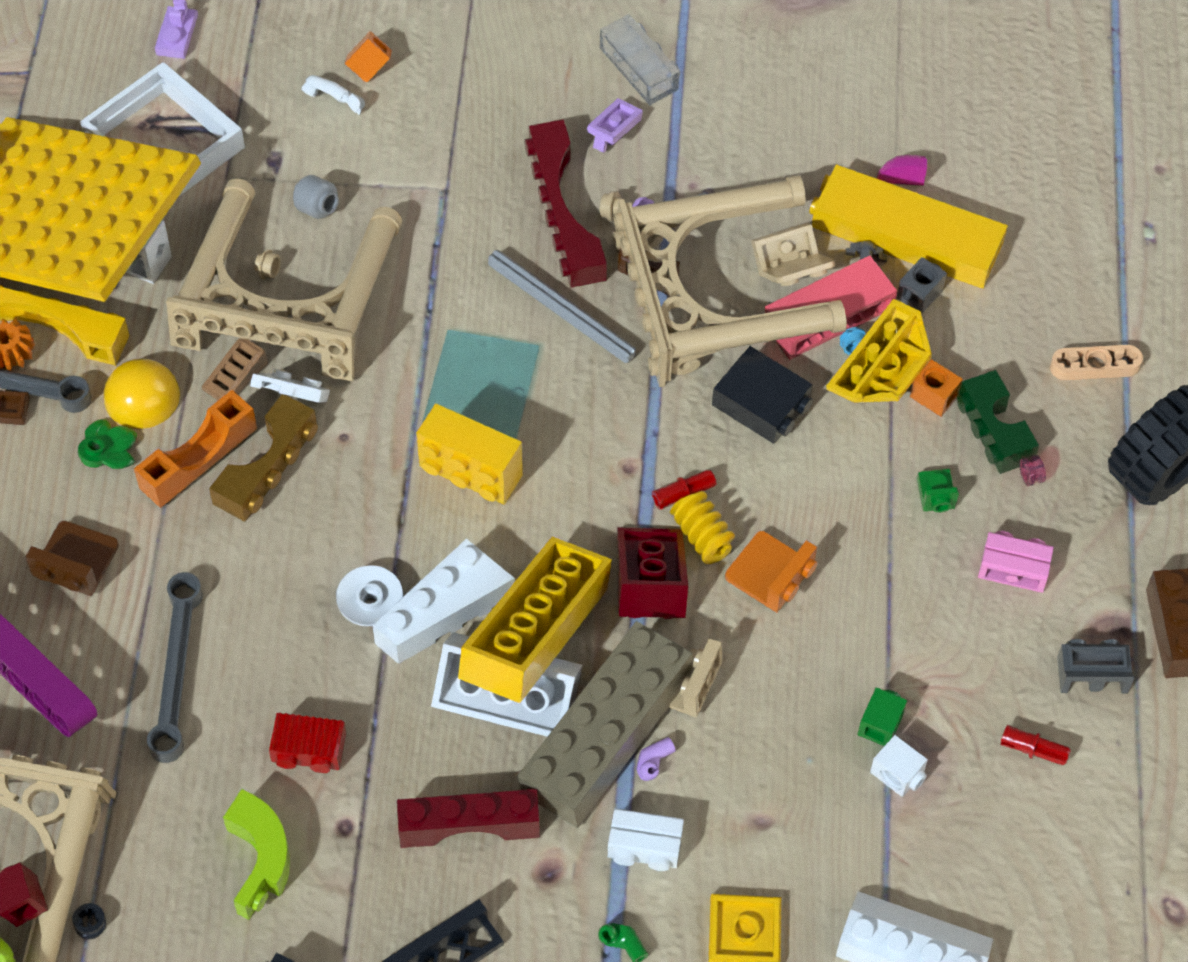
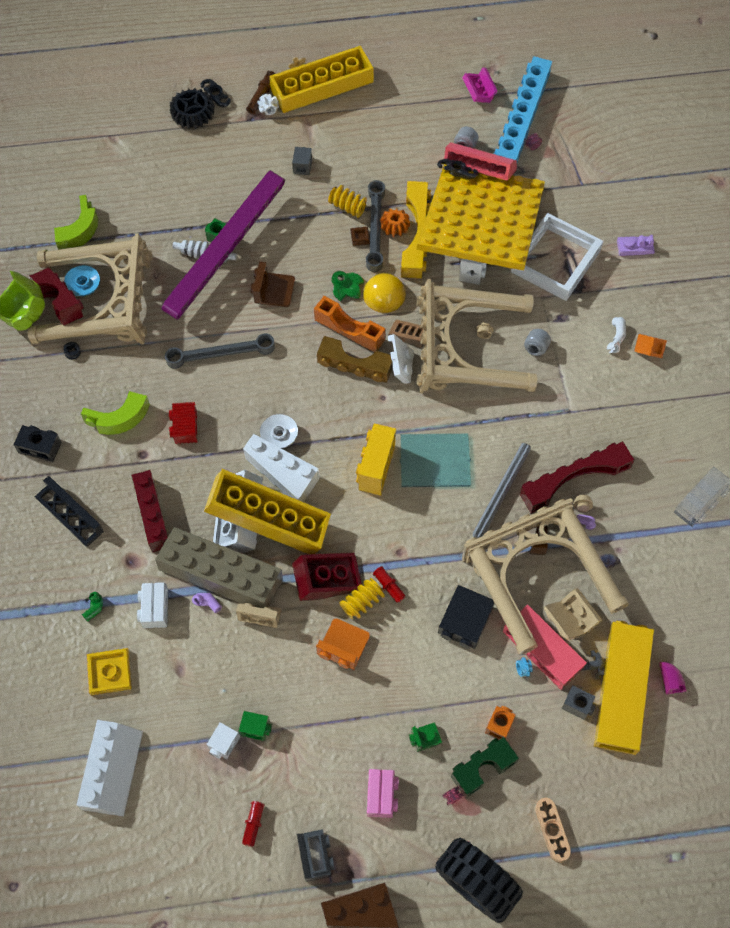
camera: 80 degrees right, 5 degrees up
(613, 123) = (646, 491): lavender plate -> none
(885, 358) = (505, 684): yellow wedge -> none

